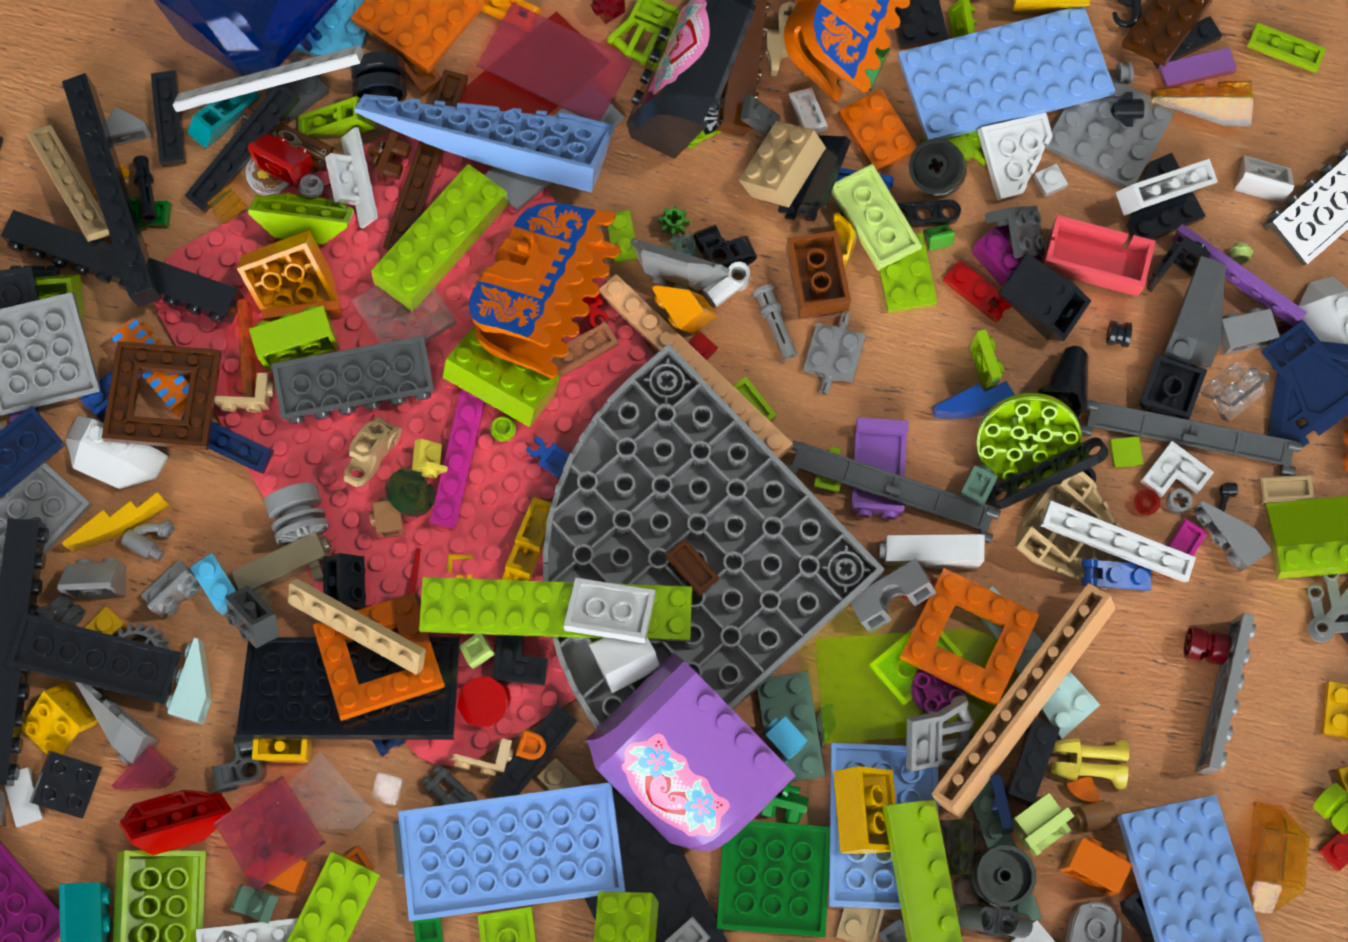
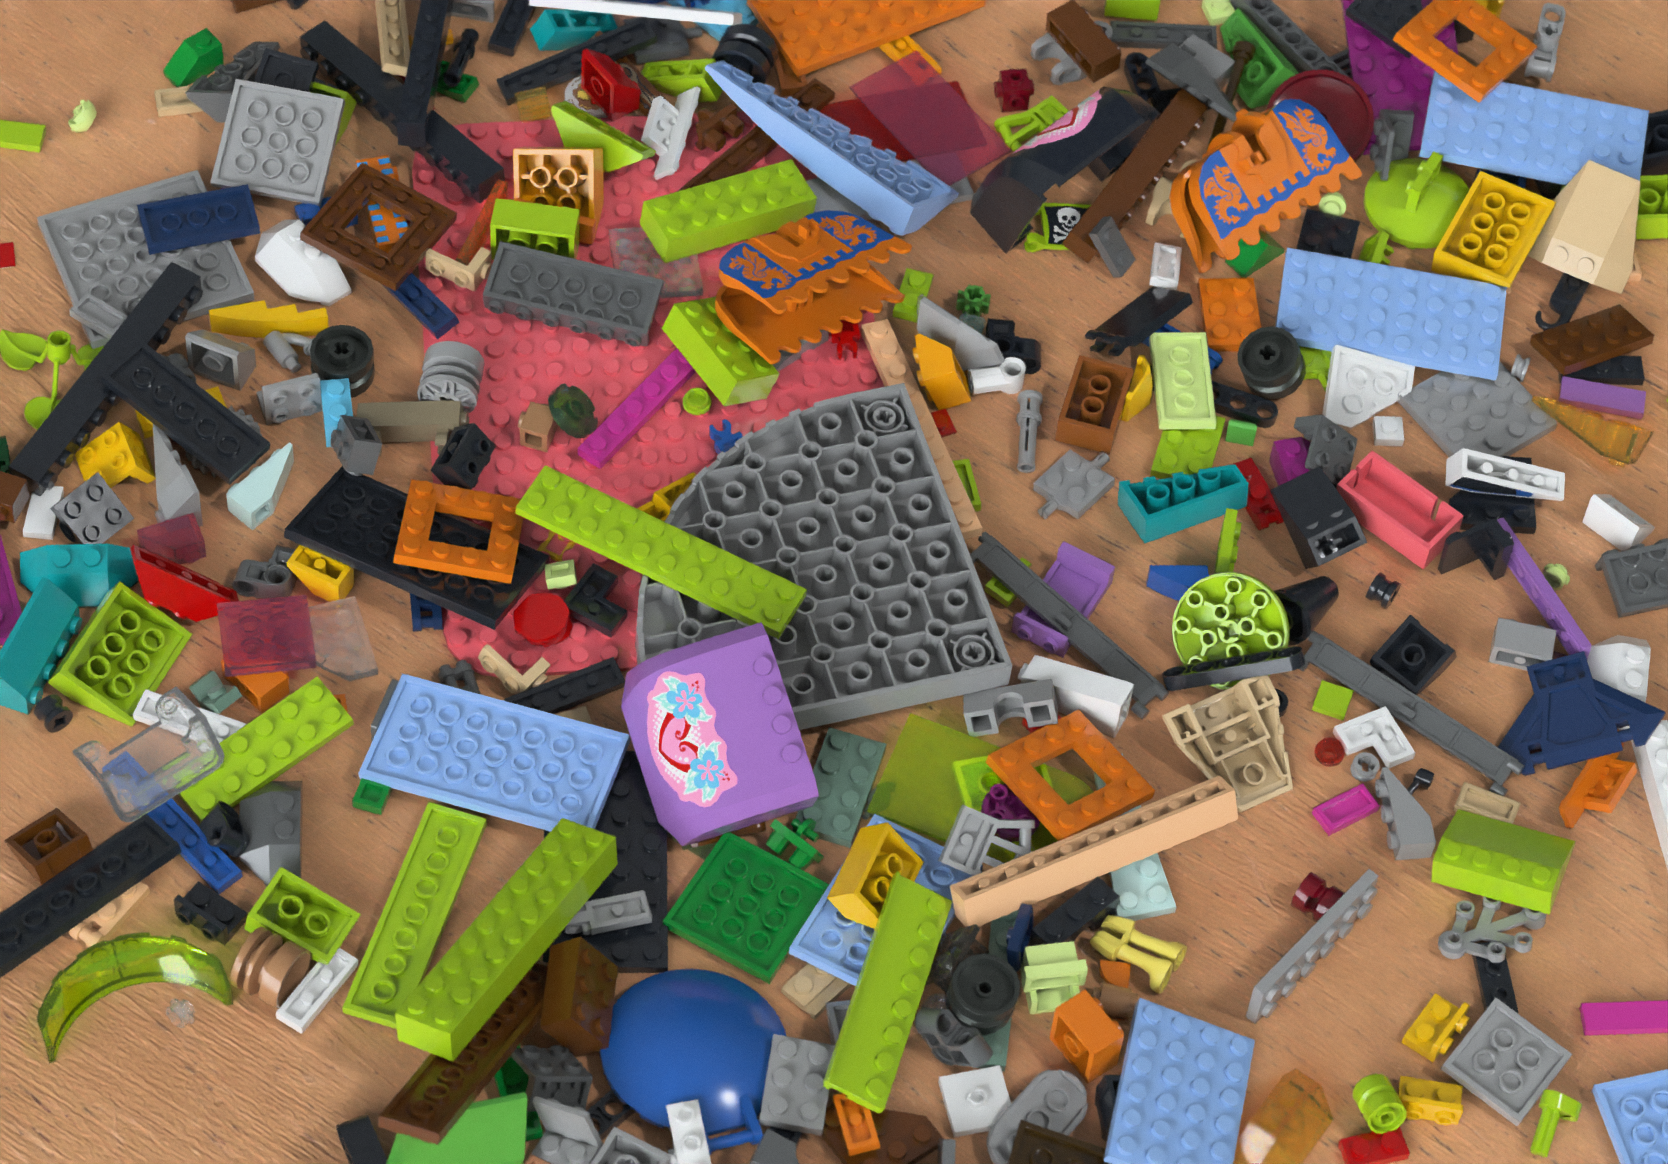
camera: 20 degrees right, 20 degrees down
(83, 846) = (79, 570): none -> teal wedge
(186, 523) = (342, 354): none -> pearl dark grey wheel
(310, 186) = (624, 120): light grey plate -> none
(356, 626) = (455, 490): tan plate -> none
(369, 449) = (559, 353): tan piece -> none
(387, 788) = (403, 657): clear slope -> none
(427, 458) = (607, 392): light yellow bracket -> none
(531, 745) = (566, 678): orange tile -> none
(586, 348) = (815, 368): nougat plate -> none
(610, 610) = (713, 561): white plate -> none
(623, 660) = (704, 612): white slope -> none
(692, 567) = (817, 576): reddish brown tile -> none
(782, 163) = (1111, 293): tan brick -> none
(784, 739) = (829, 774): medium azure brick -> none
(923, 335) = (1182, 501): none -> teal wedge
(979, 484) = (1158, 655): sand green bracket -> none
(1116, 575) = (1261, 799): plate -> none
(1117, 541) = (1274, 762): white plate -> none
(1127, 109) = (1501, 395): black piece -> none
(1198, 323) = (1472, 604): dark grey wedge -> none
(1235, 389) = (1481, 693): clear bracket -> none

